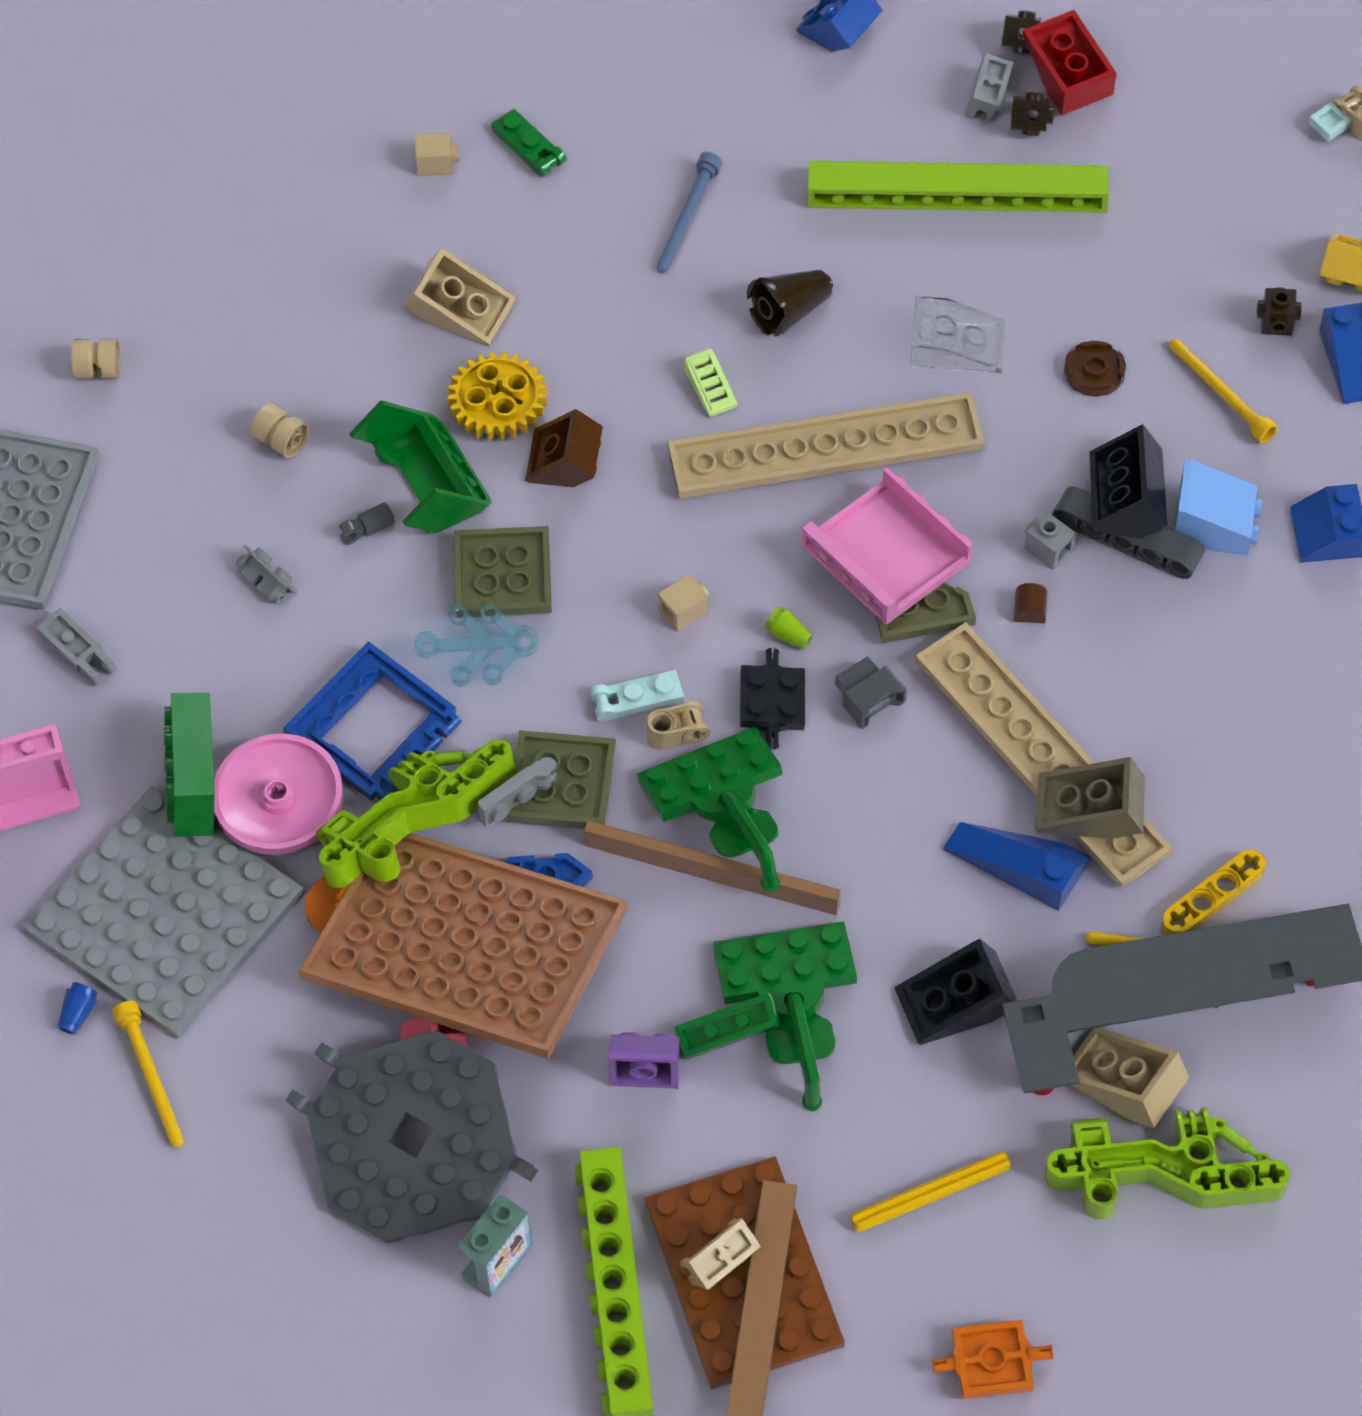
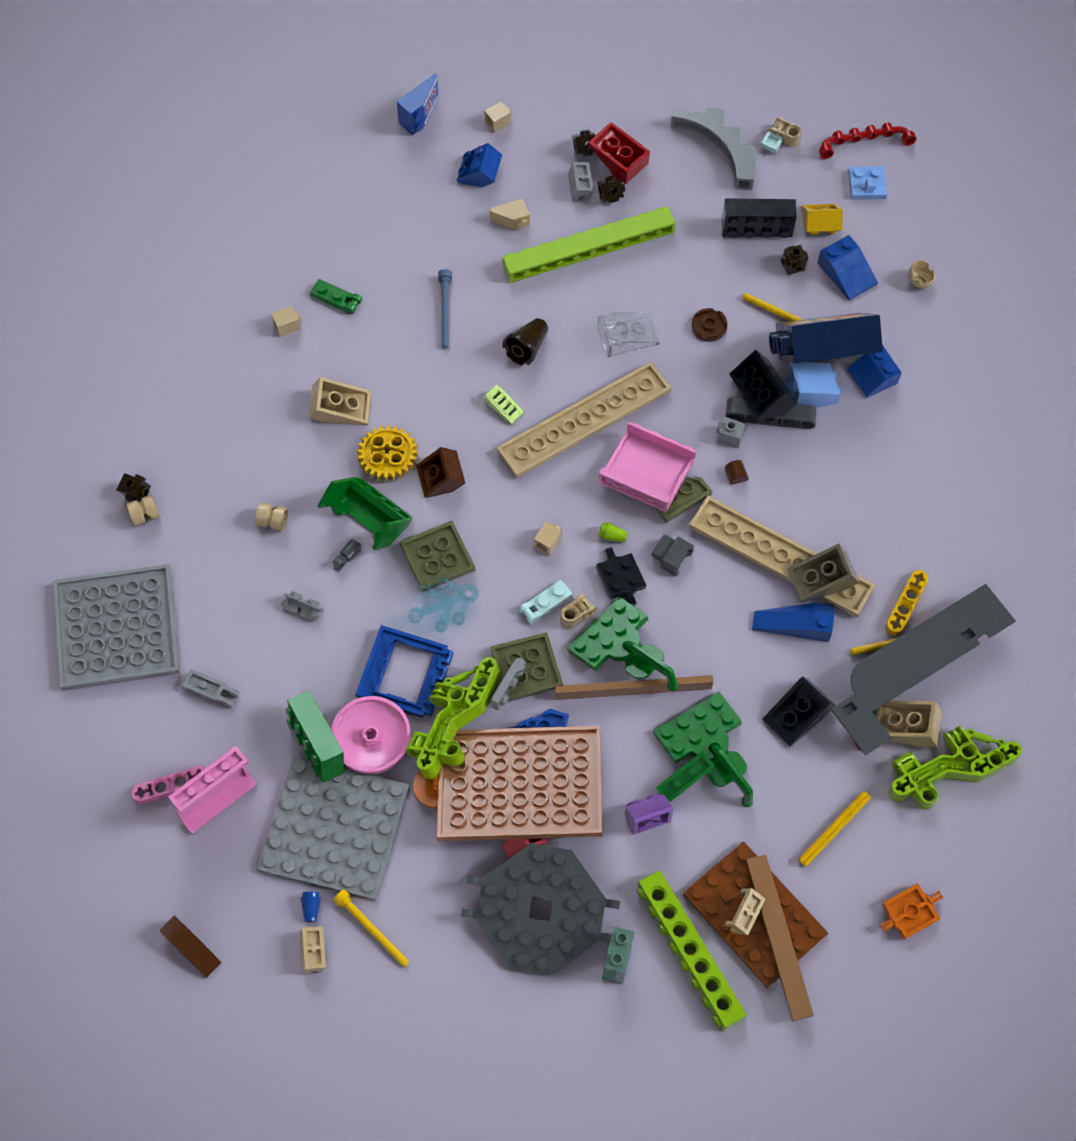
camera: 25 degrees left, 5 degrees up
(48, 1069) = (312, 949): none -> tan hinge
(97, 320) = (133, 487): none -> dark brown brick
(854, 104) = (511, 215): none -> tan slope
(1247, 228) = (758, 217): none -> black brick
(1258, 95) = (725, 138): none -> light grey arch
(1259, 439) = (827, 337): none -> dark blue brick

